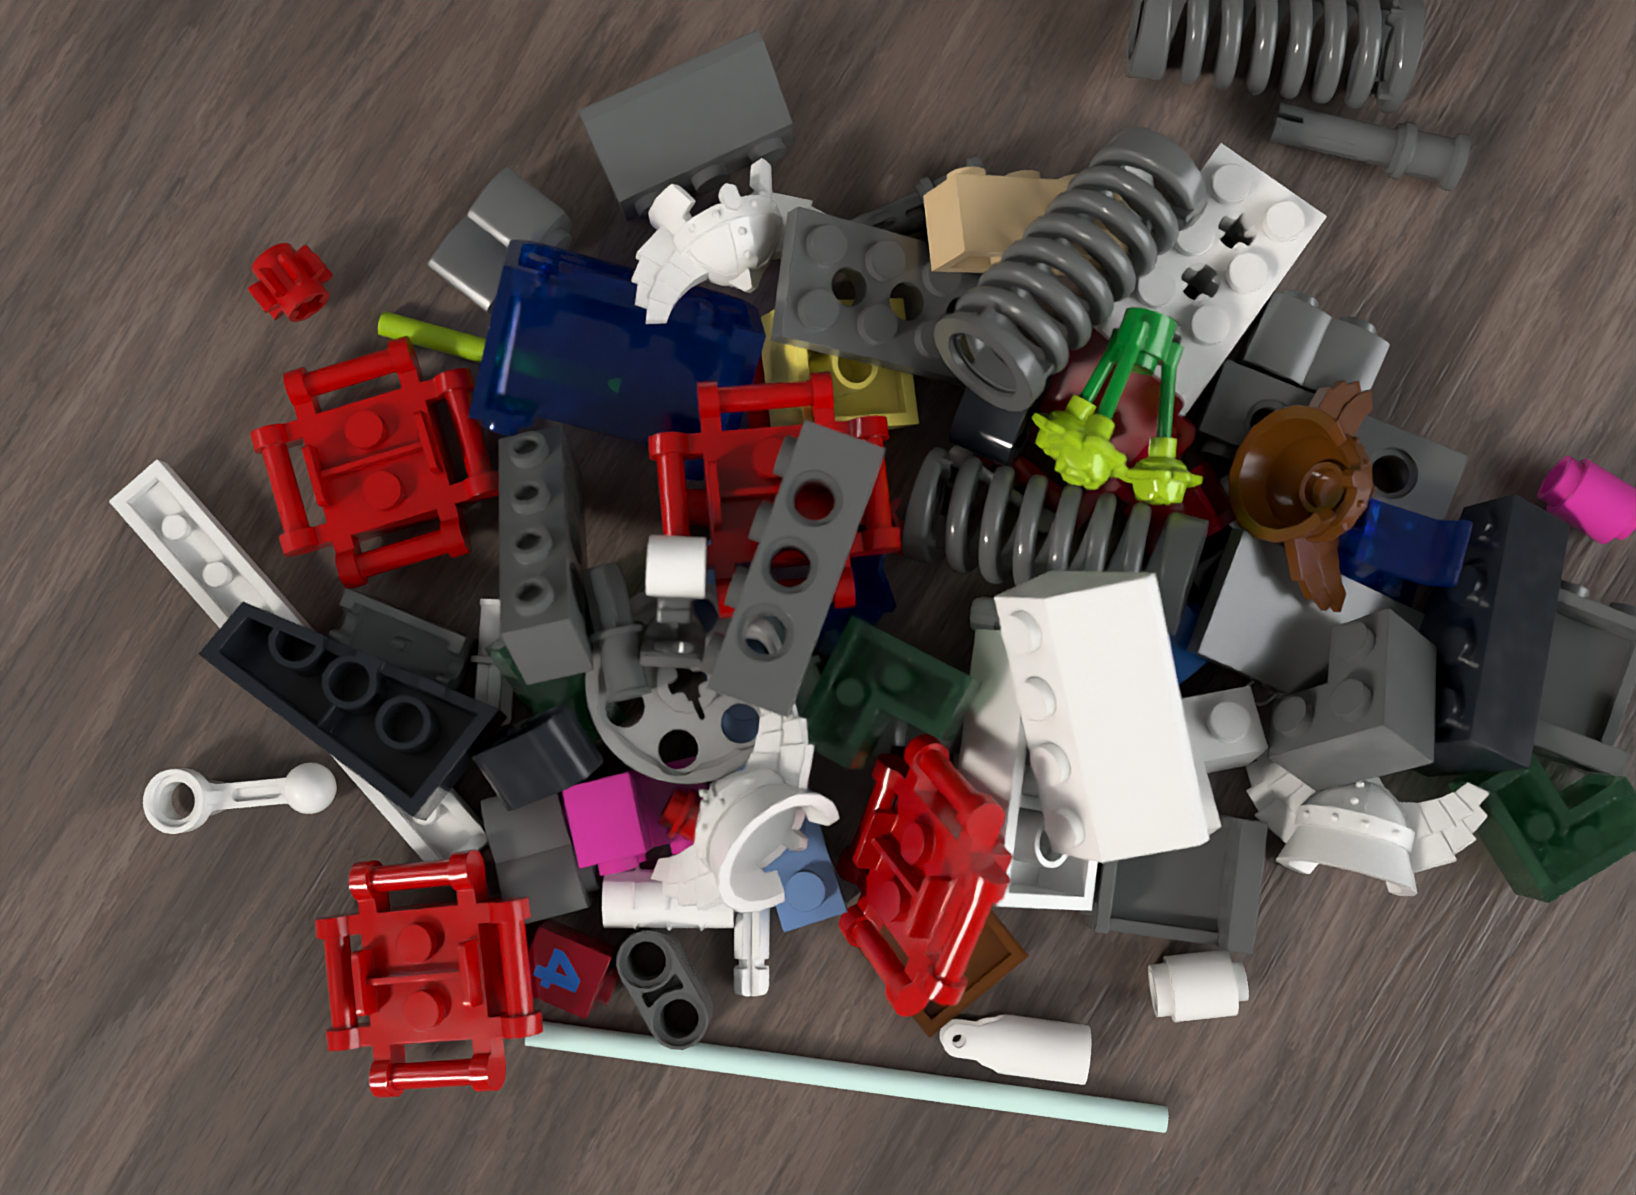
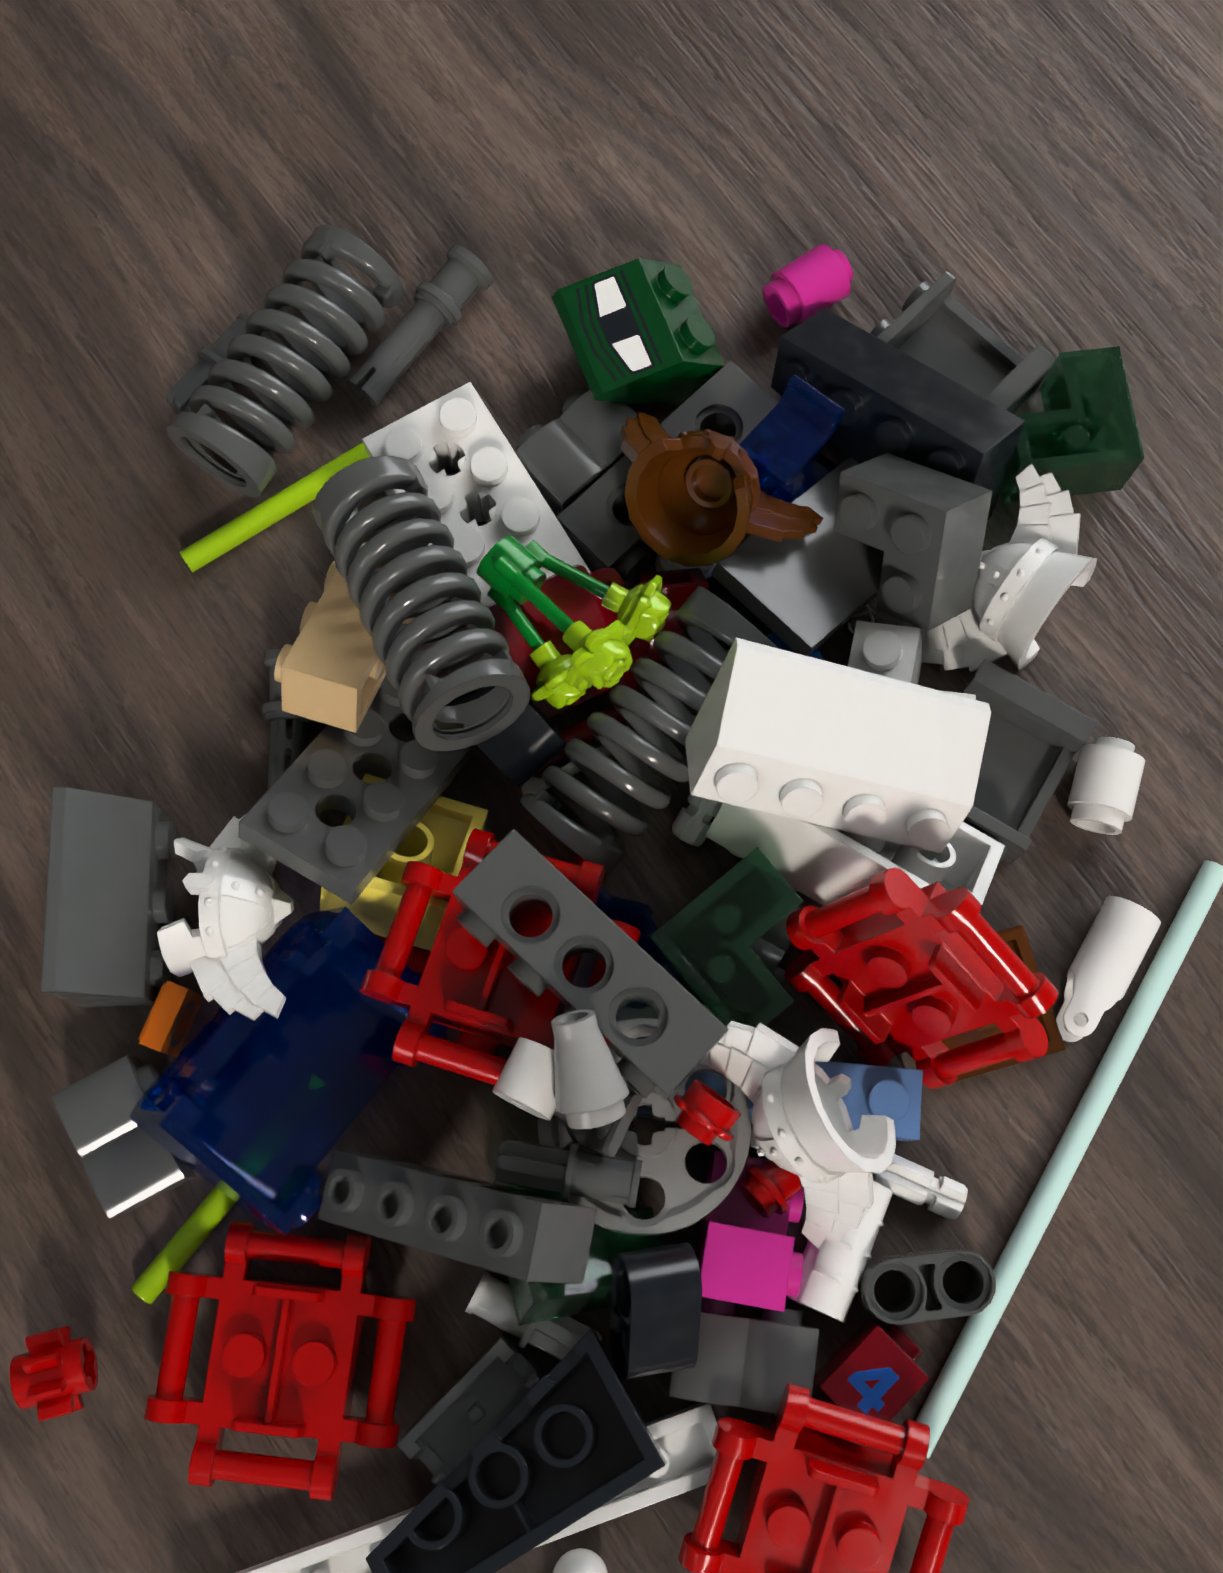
camera: 75 degrees left, 10 degrees down
(613, 233) = (170, 1019): none -> orange tile
(692, 610) = (586, 1075): none -> light grey cone
(716, 731) = (706, 1113): none -> red plate
(1123, 97) = (267, 512): none -> lime bar
(1455, 355) = (639, 334): none -> dark green slope

